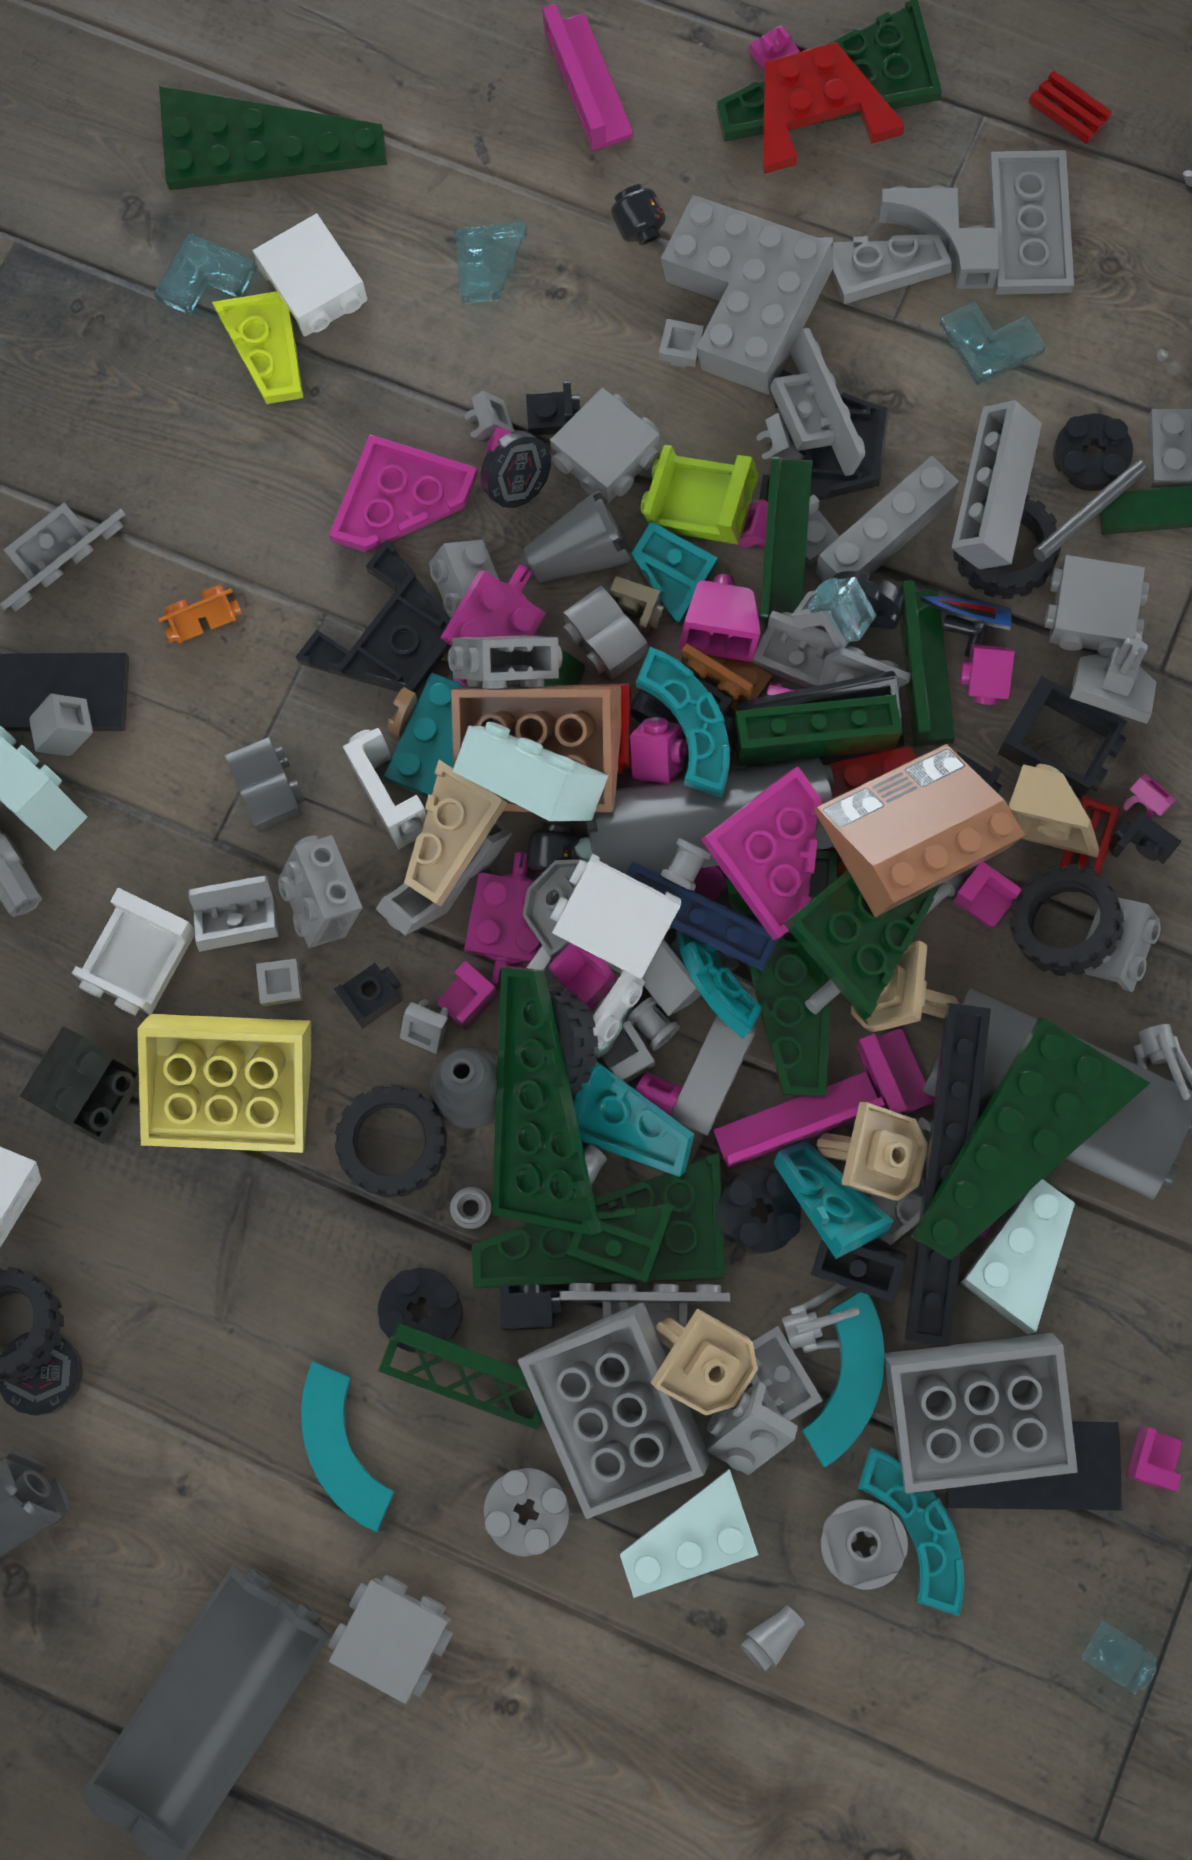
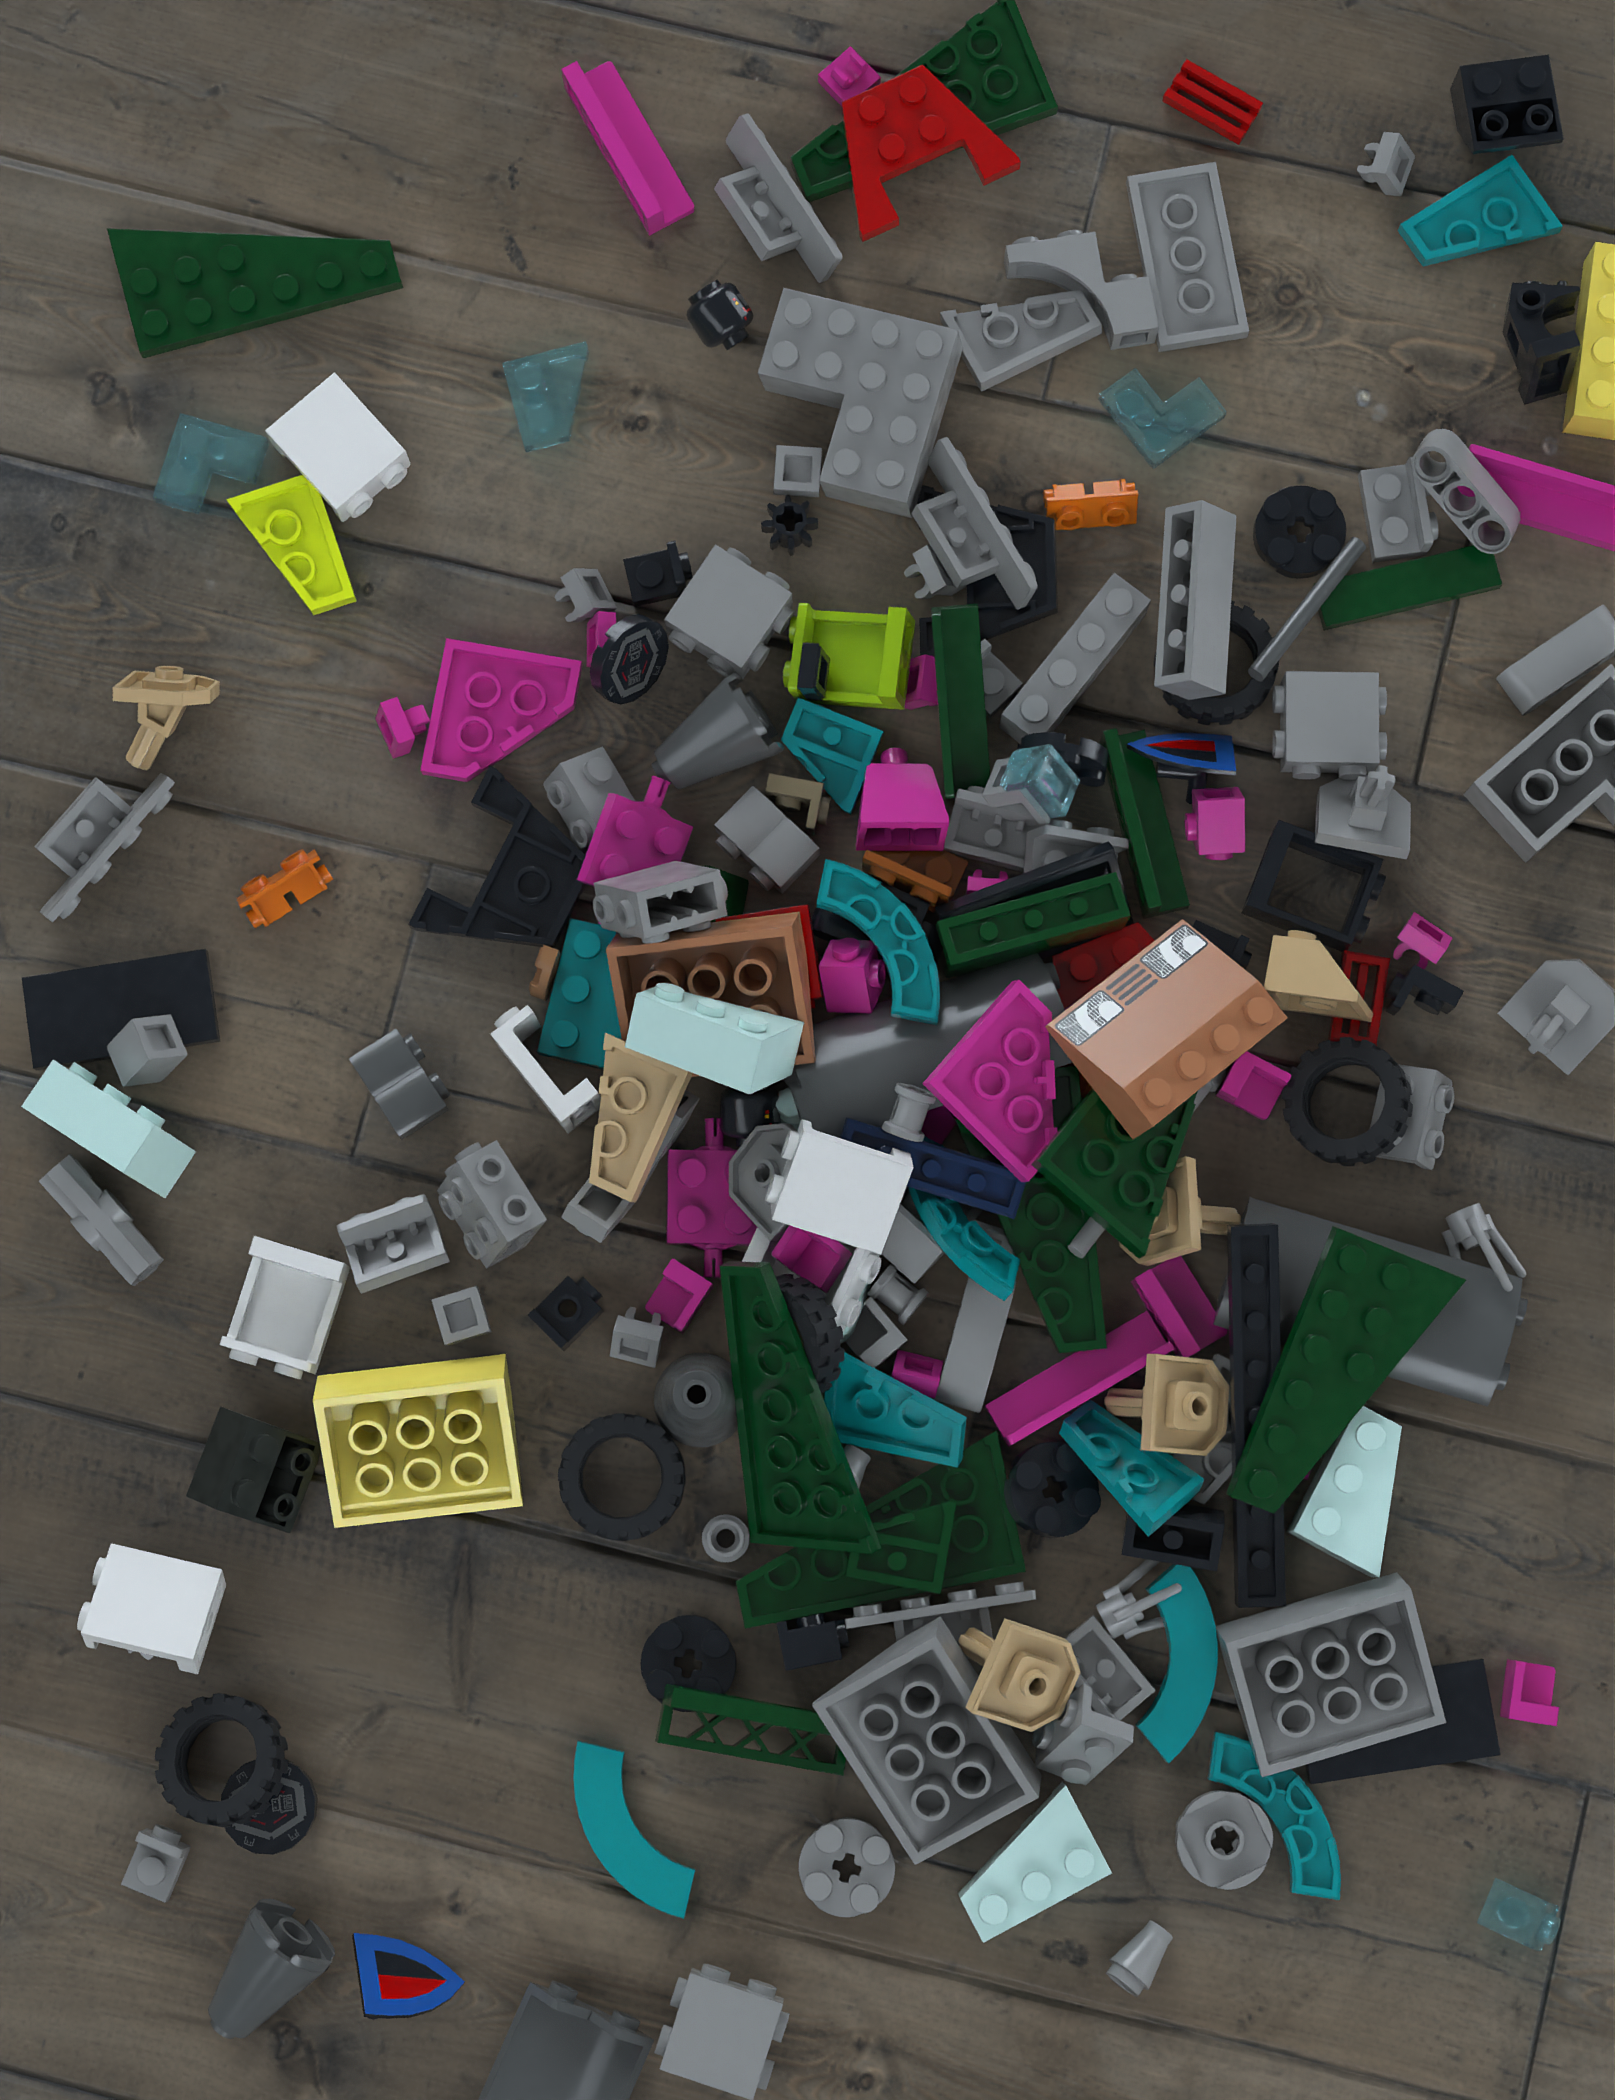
camera: 15 degrees left, 5 degrees up
(120, 1542) = (400, 1978): none -> shield
(125, 454) = (161, 703): none -> tan piece
(320, 498) = (400, 726): none -> dark pink tile
(665, 375) = (786, 511): none -> black gear
(666, 500) = (813, 672): none -> black tile
(695, 137) = (771, 205): none -> light grey bracket
(929, 408) = (1109, 505): none -> orange hinge

